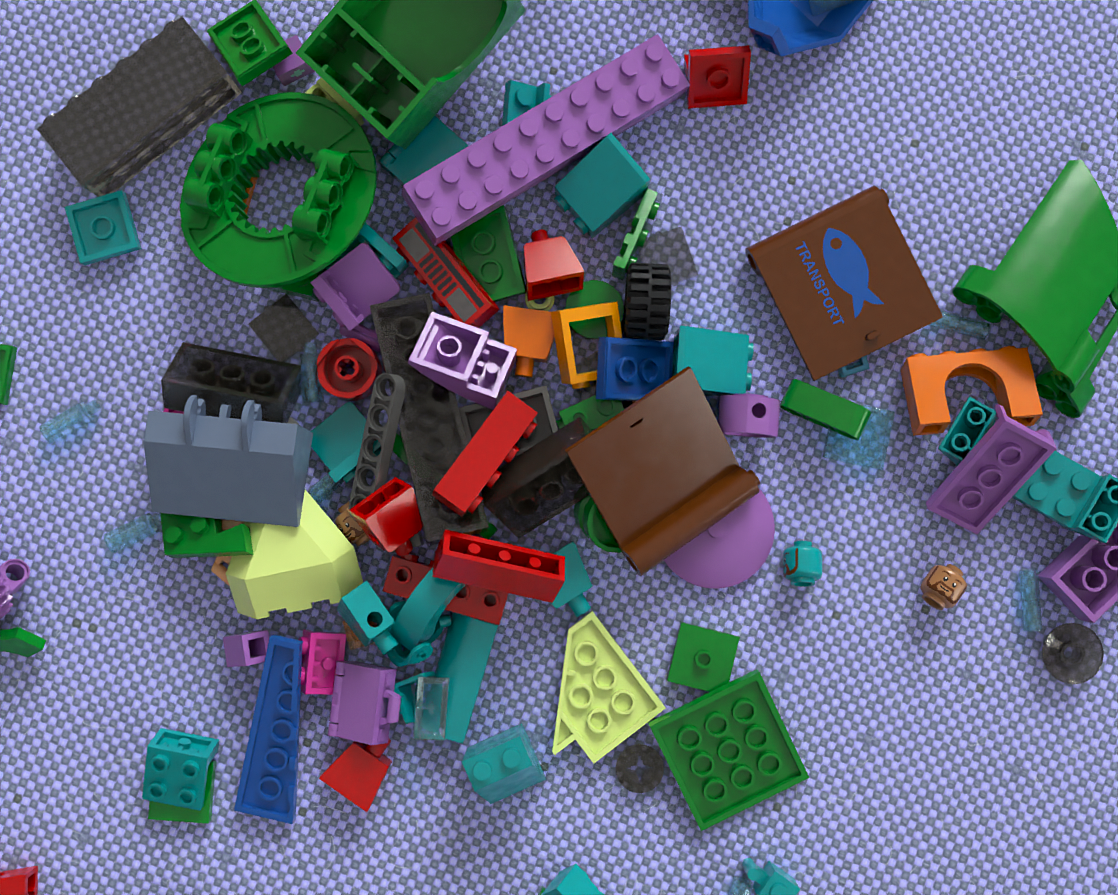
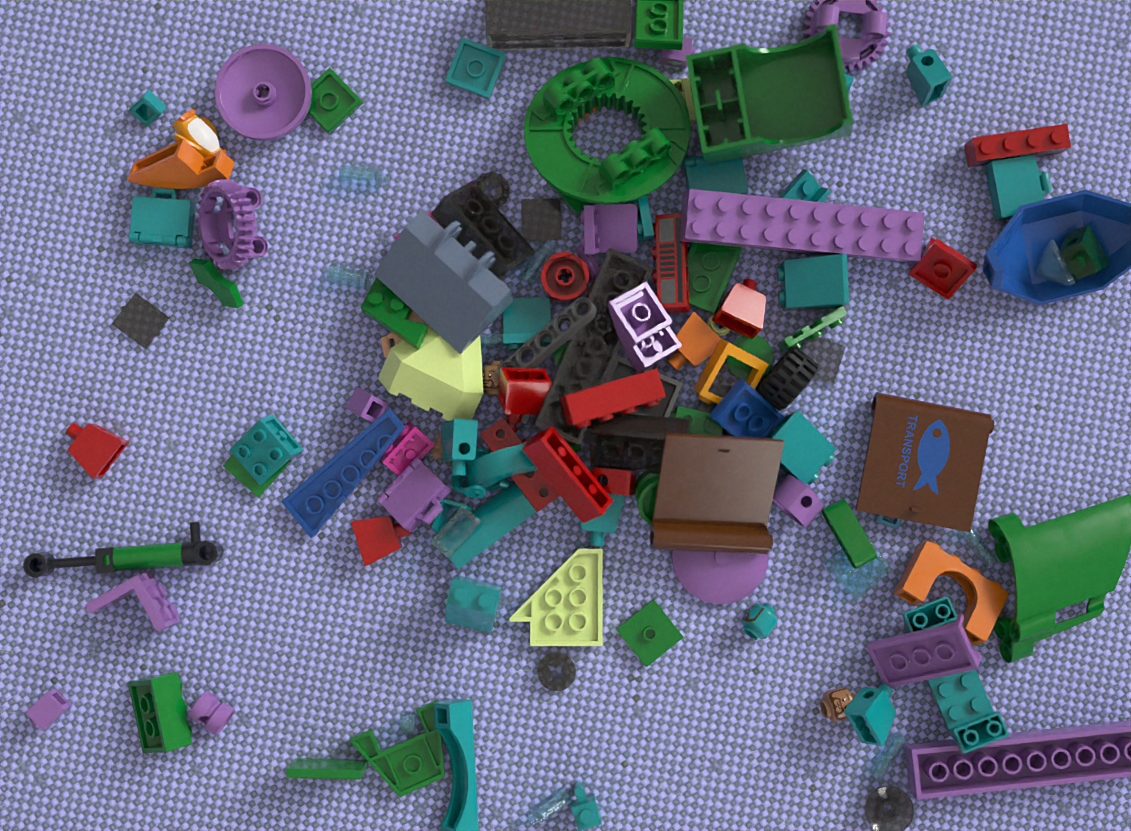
camera: 30 degrees right, 0 degrees up
(222, 328) = (494, 179): none -> clear smoke gear
(557, 532) = (619, 481): none -> red torso
(728, 749) = (622, 703): green plate -> none
(984, 571) = (872, 714): none -> teal torso

